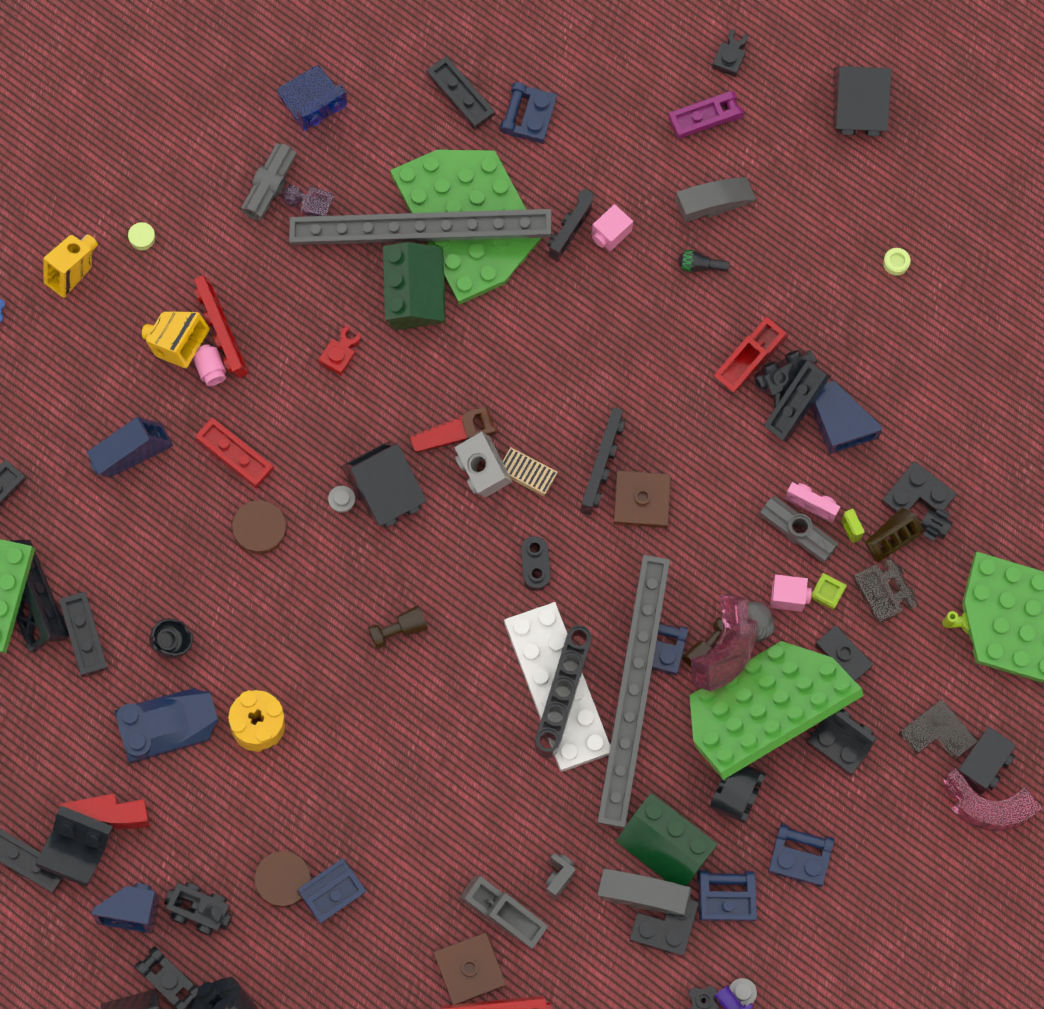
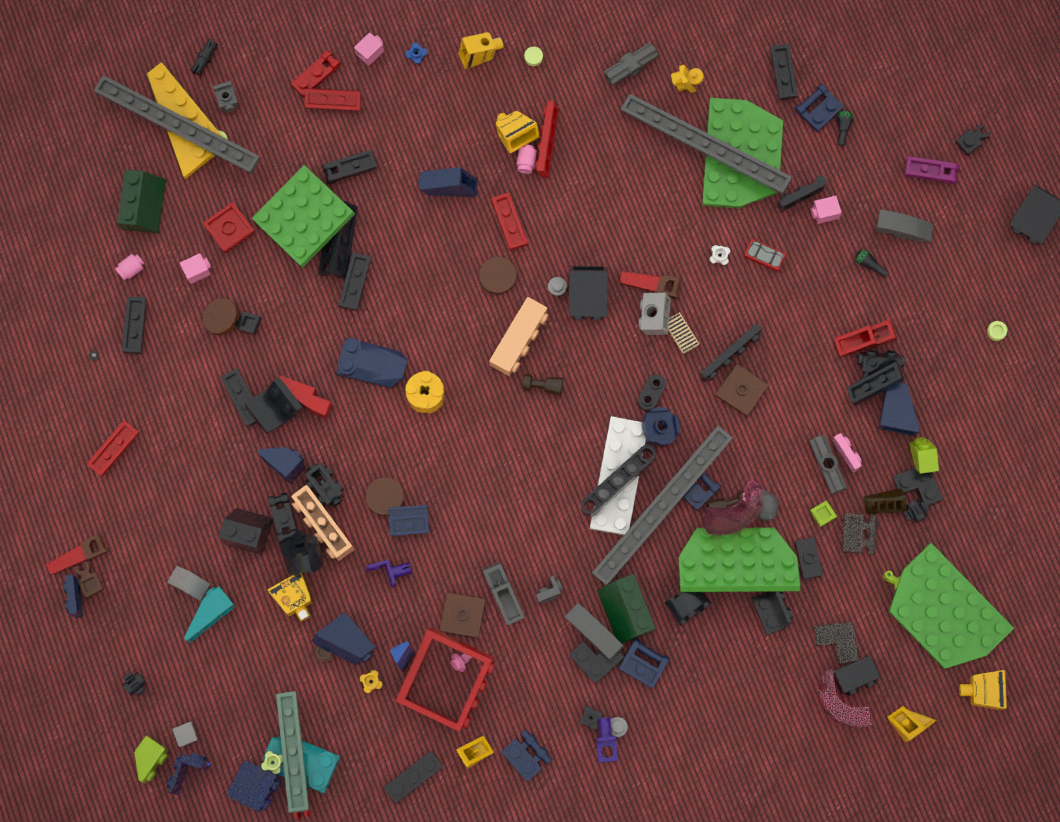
camera: 40 degrees right, 5 degrees up
(170, 638) = (403, 313): black hair -> none
(225, 957) = (322, 522): none -> light nougat brick
(312, 97) = (689, 25): clear blue bracket -> none
(315, 202) = (651, 93): clear purple plate -> none
(332, 586) = (518, 336): none -> light nougat brick
(339, 354) = (609, 196): red plate -> none
(348, 163) = (685, 78): none -> yellow hips
(349, 968) = (392, 572): none -> dark purple bracket
(413, 285) = (679, 178): dark green slope -> none
(517, 344) = (724, 251): none -> white plate
(566, 609) = (651, 431): none -> dark blue plate
(568, 111) = (845, 120): none -> black piece
(570, 322) = (764, 255): none -> tile
(790, 593) = (797, 501): bright pink brick -> none
(799, 864) = (700, 670): dark blue plate -> none
(852, 526) = (863, 482): lime tile -> none
(905, 453) = (924, 455): none -> lime slope

